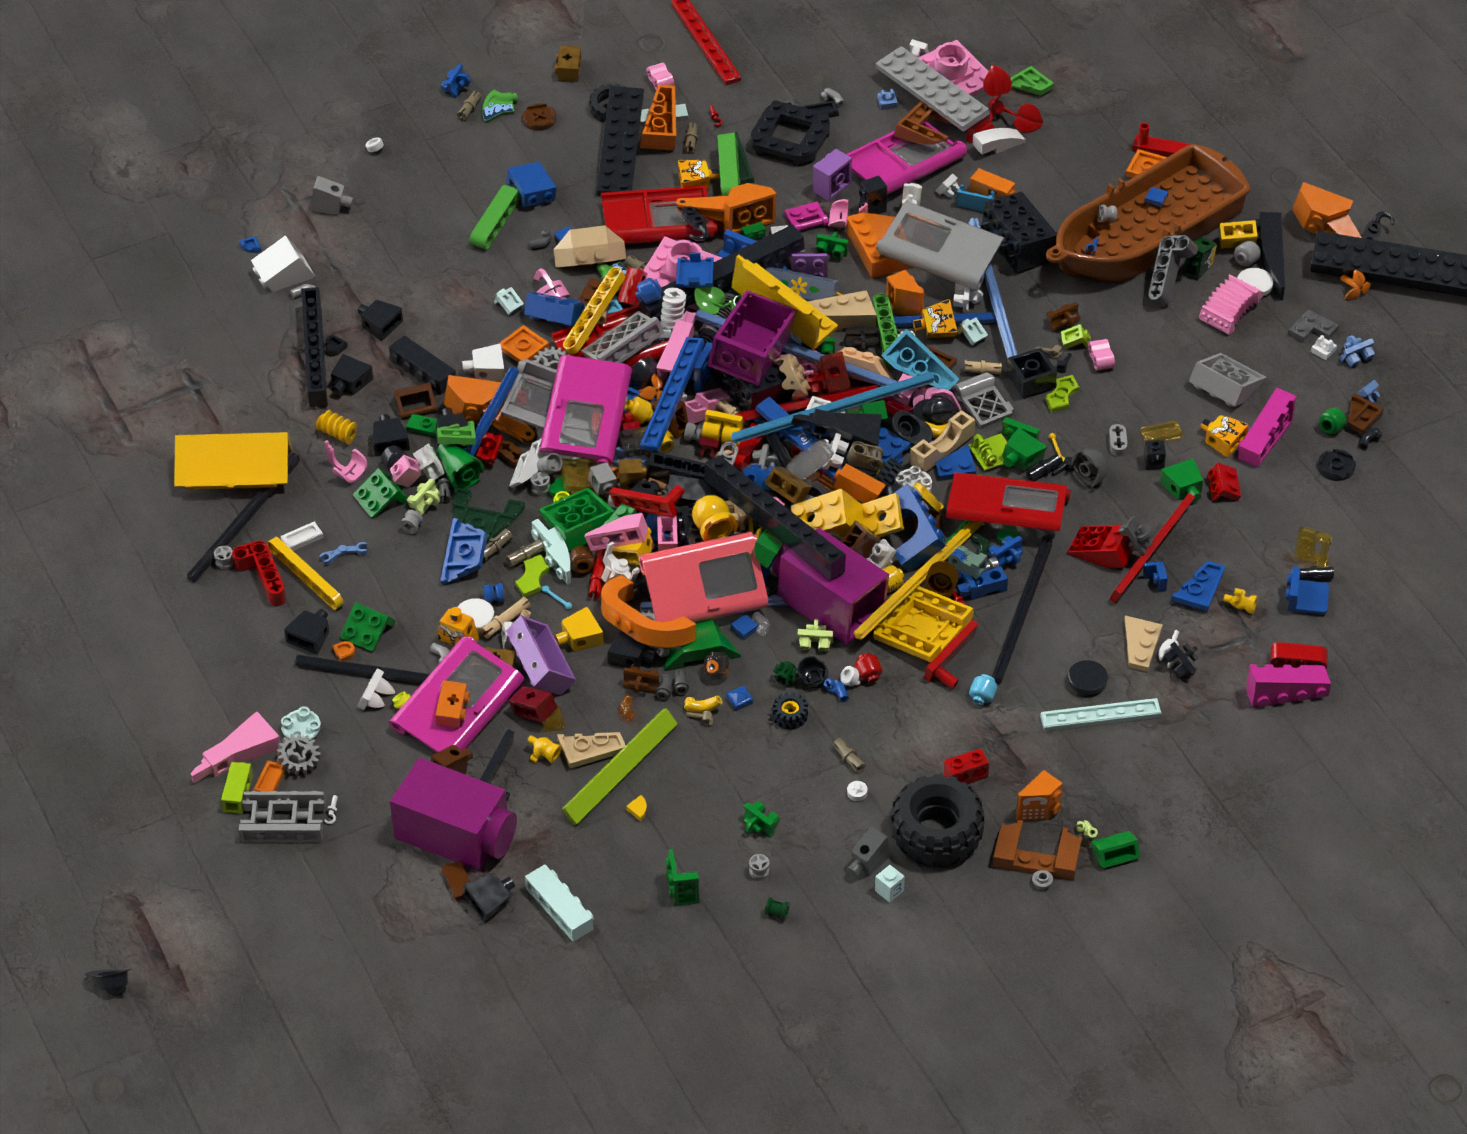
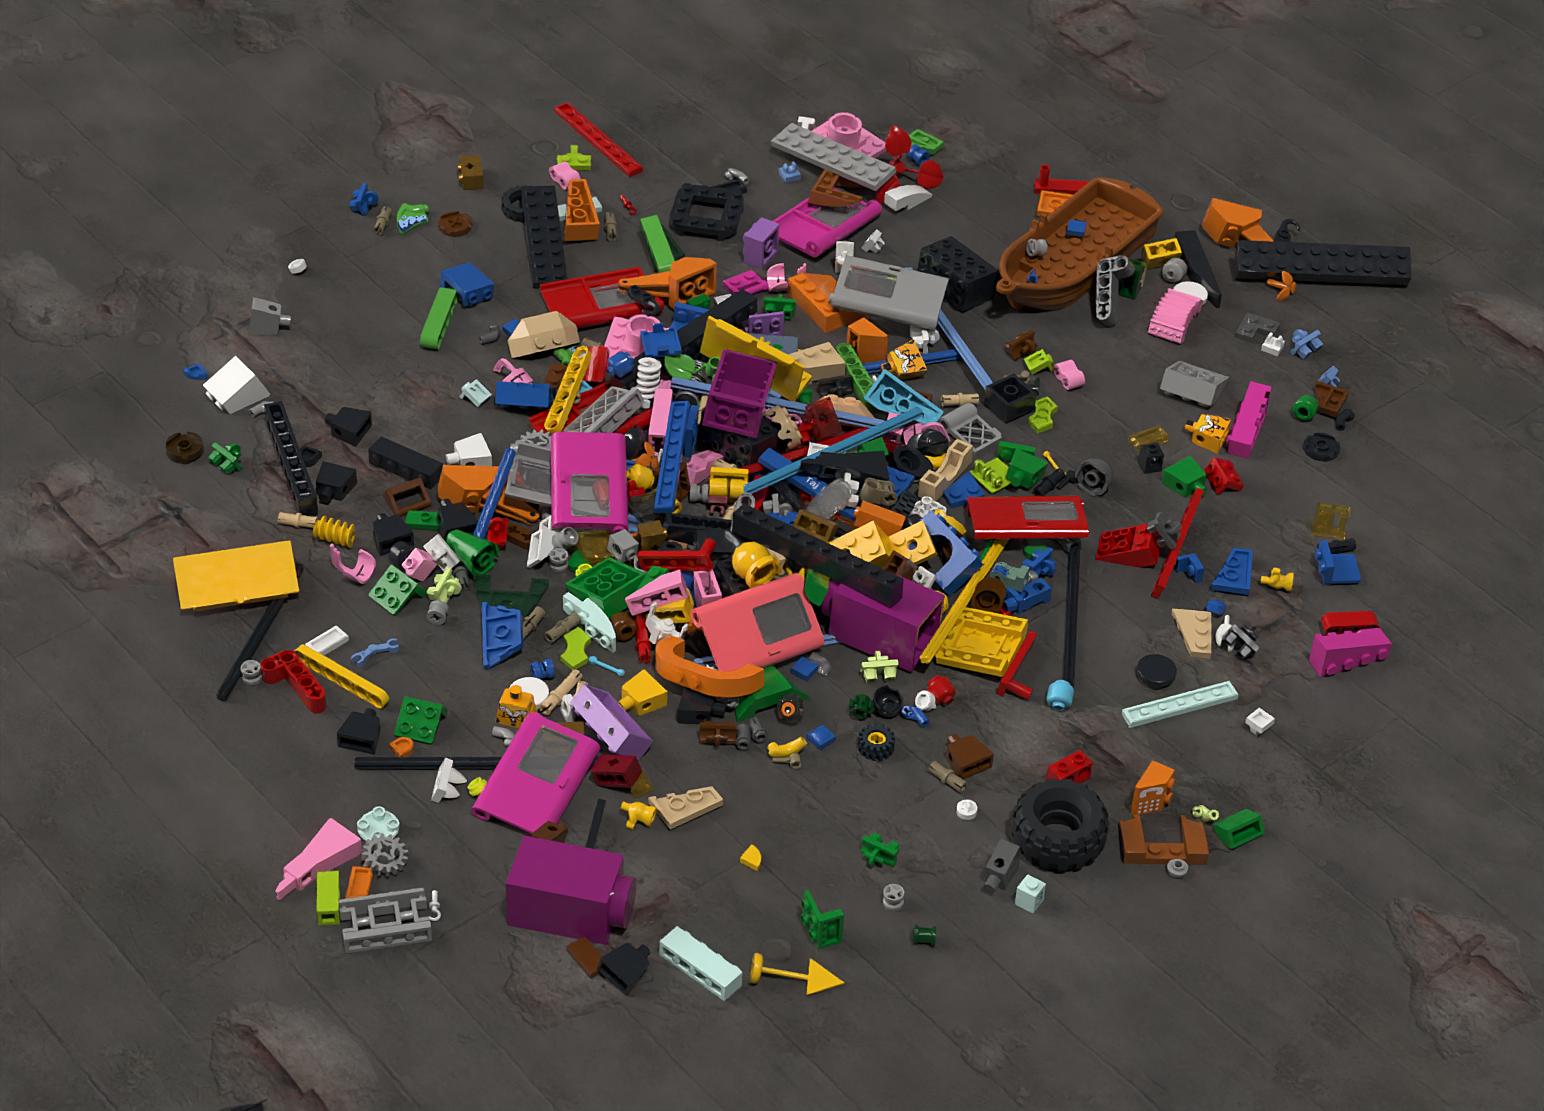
camera: 15 degrees left, 5 degrees down
(220, 329) = (192, 447): none -> dark brown plate
(261, 333) = (228, 455): none -> green hips
(305, 409) = (297, 520): none -> tan pin
(450, 714) = (536, 781): orange brick -> none
(456, 435) = (462, 522): bright green wing -> none
(523, 344) = (502, 432): orange plate -> none
(619, 766) = (721, 820): lime tile -> none
(625, 709) = (709, 763): clear orange arm -> none
(664, 936) = (818, 977): none -> yellow piece
(676, 61) = (576, 160): none -> lime hinge
(696, 173) = (626, 256): light orange torso -> none
(873, 738) = (968, 756): none -> reddish brown torso
(874, 193) = (807, 252): black brick -> none
(972, 200) = (902, 252): dark azure hinge -> none
(972, 330) = (940, 367): light aqua bracket -> none
(982, 542) = (1012, 559): clear green arm -> none
(985, 182) = (914, 237): orange brick -> none
(1022, 94) = (918, 155): none -> blue wheel
(1114, 440) = (1111, 453): light grey beam -> none
(1169, 620) = (1216, 606): none -> blue tile
(1171, 744) = (1259, 721): none -> white tile

